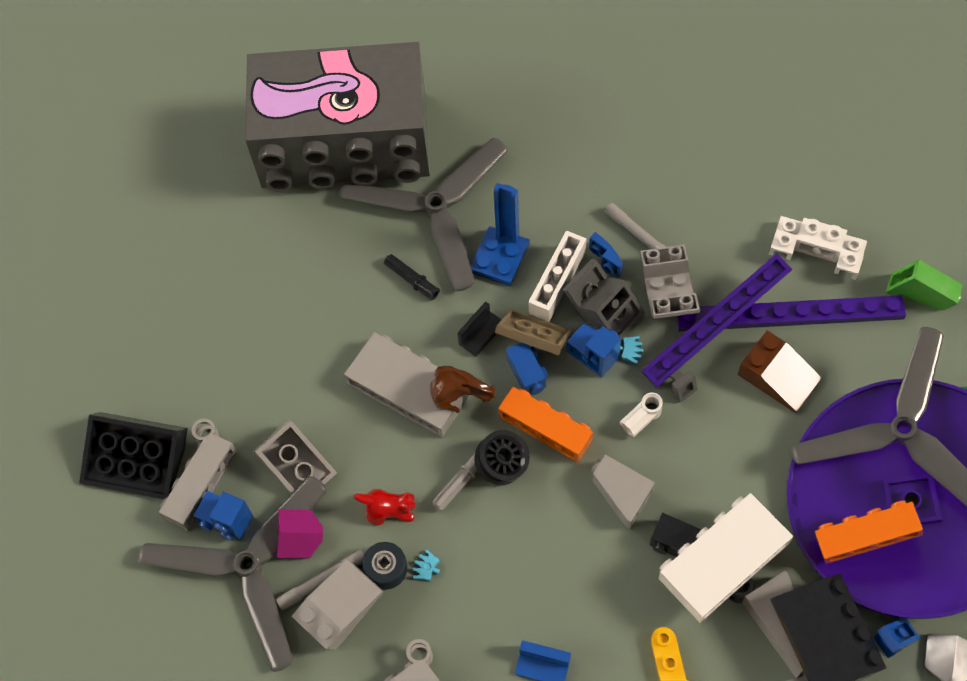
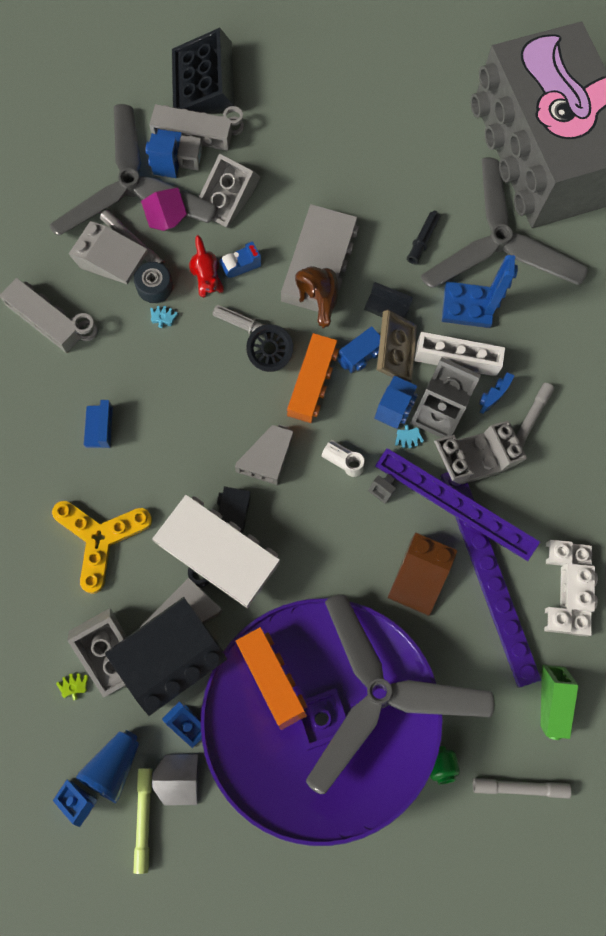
camera: 65 degrees right, 10 degrees up
(231, 485) = (189, 152): none -> light grey brick
(385, 464) = (241, 261): none -> blue leg

